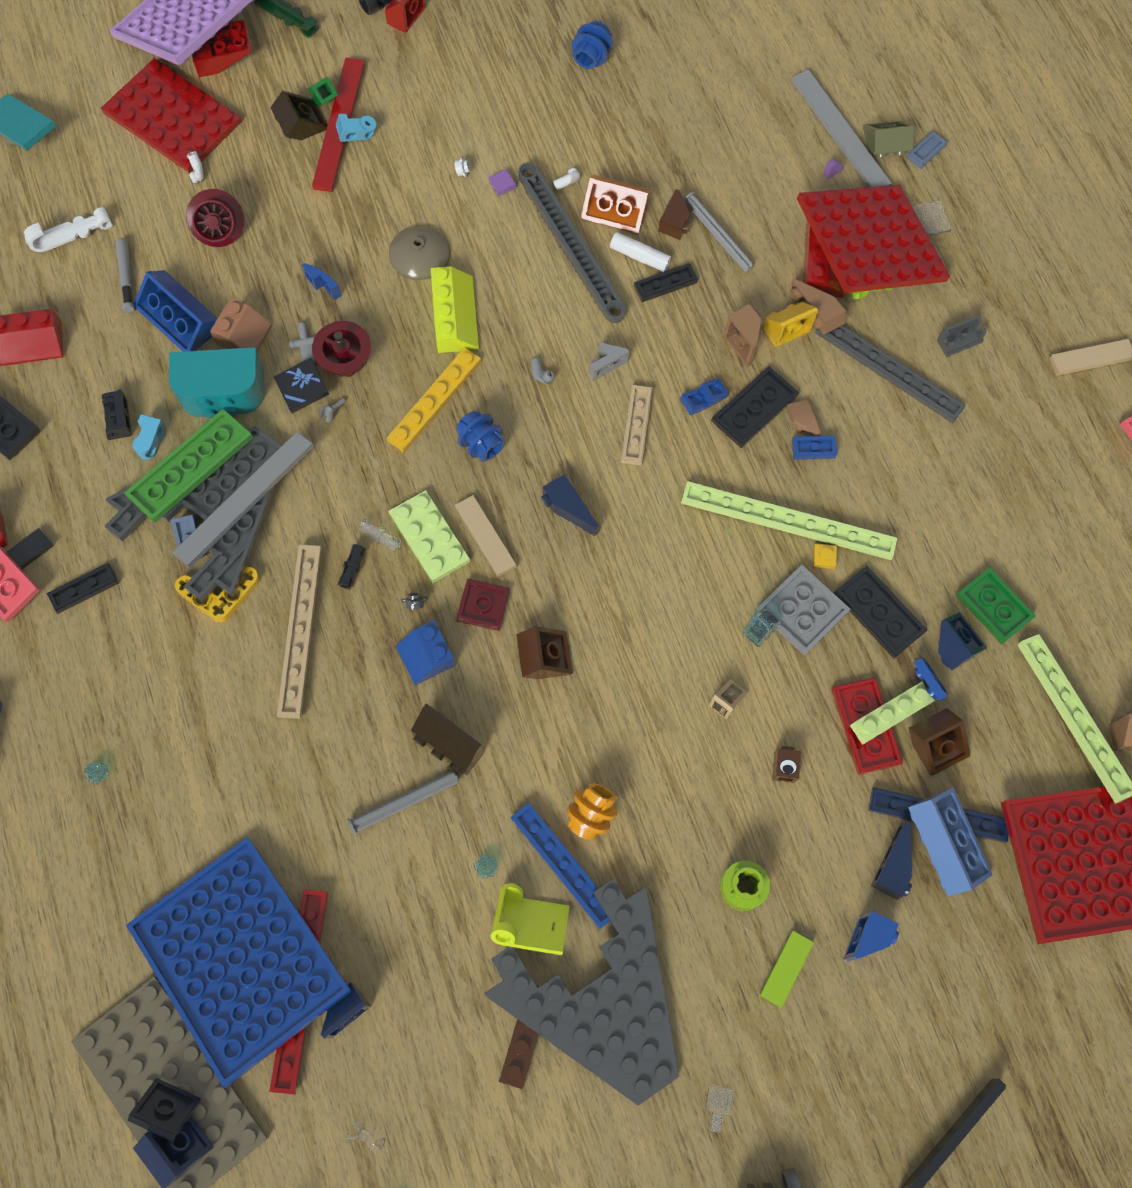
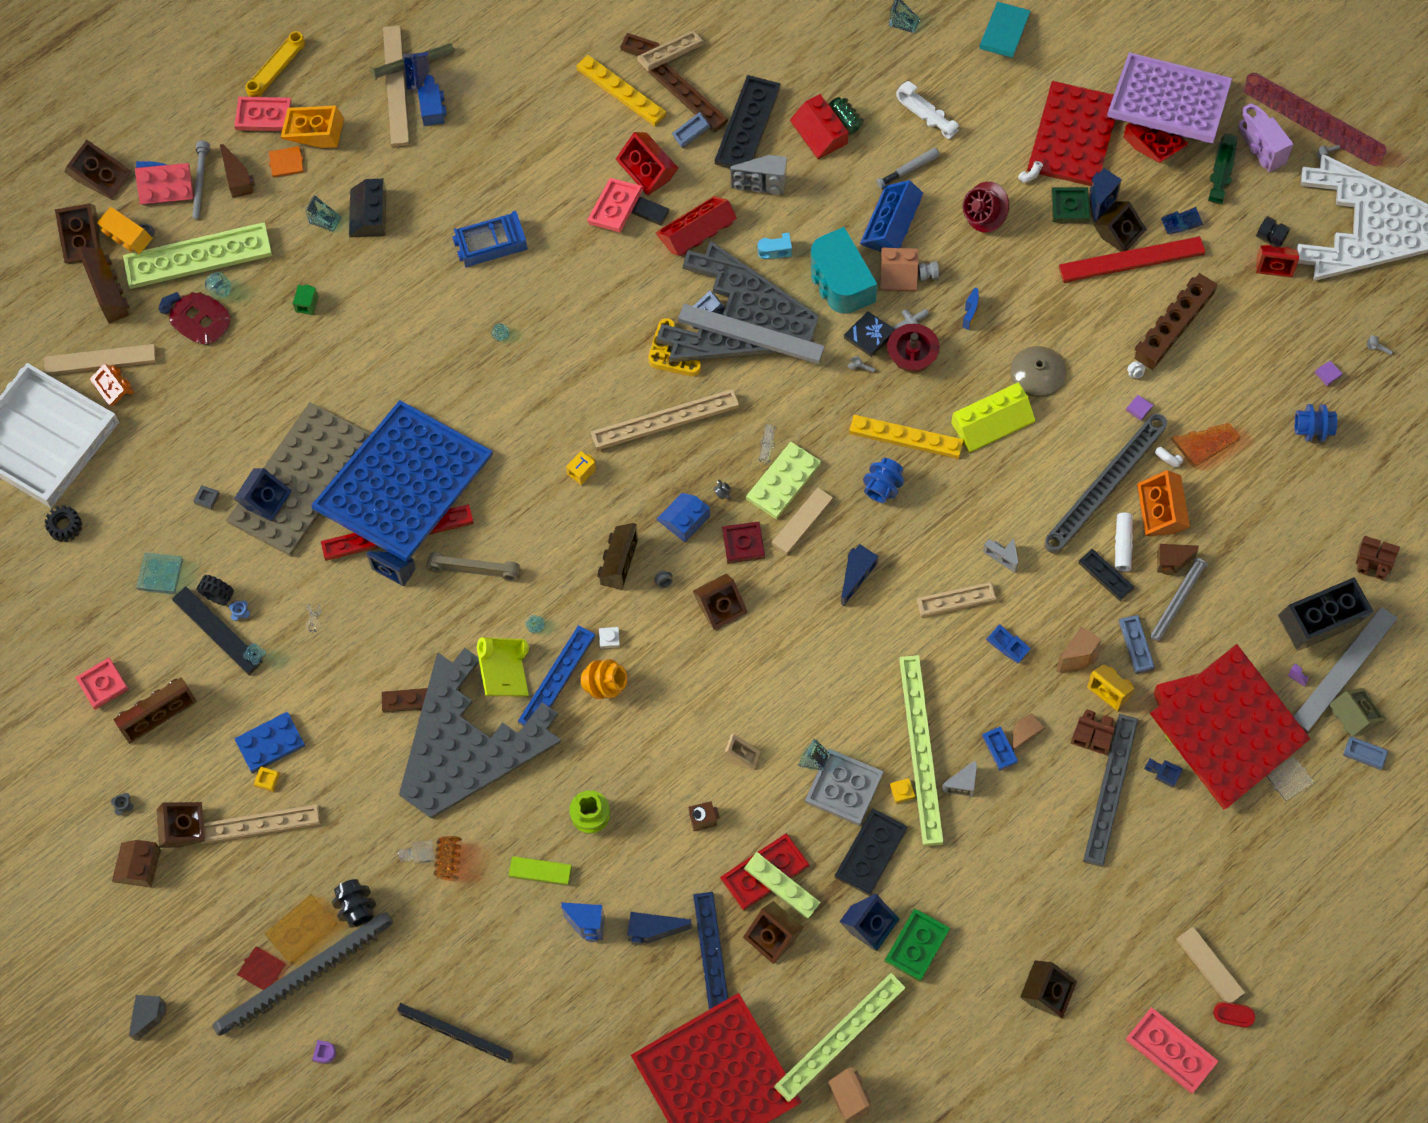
camera: 75 degrees right, 5 degrees down
(28, 304) = (846, 114): none -> clear green piece
(55, 413) = (760, 175): none -> light grey slope
(76, 506) = (697, 225): none -> red slope
(83, 588) = (635, 260): black tile -> none
(116, 415) = (784, 218): black hinge -> none
(164, 1109) = (284, 476): black tile -> none
(188, 465) = (761, 284): bright green plate -> none
(250, 149) = (1070, 204): none -> dark green plate
(256, 112) = (1103, 192): none -> dark blue slope
(258, 300) = (928, 271): none -> light grey wheel
(316, 742) = (581, 467): none -> yellow brick
(320, 64) = (1181, 222): none -> clear blue slope
(322, 91) = (1151, 232): green brick -> none
(351, 566) = (732, 434): black pin -> none
(355, 128) = (1129, 273): medium azure leg -> none
(361, 953) = (508, 571): none -> dark tan piece
(403, 802) = (560, 546): light grey axle -> none
(426, 113) = (1152, 356): none -> reddish brown brick
(491, 703) = (663, 579): none -> dark grey plate
(536, 789) = (609, 638): none -> white plate
(540, 19) = (1328, 373): none -> medium lavender tile
(540, 375) = (966, 507): light grey arm -> none
(567, 143) = (1203, 445): none -> clear orange wing
(739, 1072) = (446, 857): none -> clear orange piece
(741, 58) = (1367, 557): none -> copper hips
(749, 286) = (1136, 644): none -> sand blue tile
(755, 407) = (1018, 689): black tile -> none
(793, 114) = (1325, 614): none -> black brick
(830, 311) = (1136, 710): medium nougat slope -> none
(830, 360) = (1102, 732): none -> copper hips
(837, 492) = (962, 782): none -> light grey slope
(890, 313) = (1166, 772): none -> dark blue plate
(935, 687) = (825, 909): blue plate -> none
(950, 842) = (689, 962): medium blue slope -> none
(961, 336) = (1172, 840): dark grey hinge -> none
(1076, 504) = (1048, 988): none -> dark brown slope

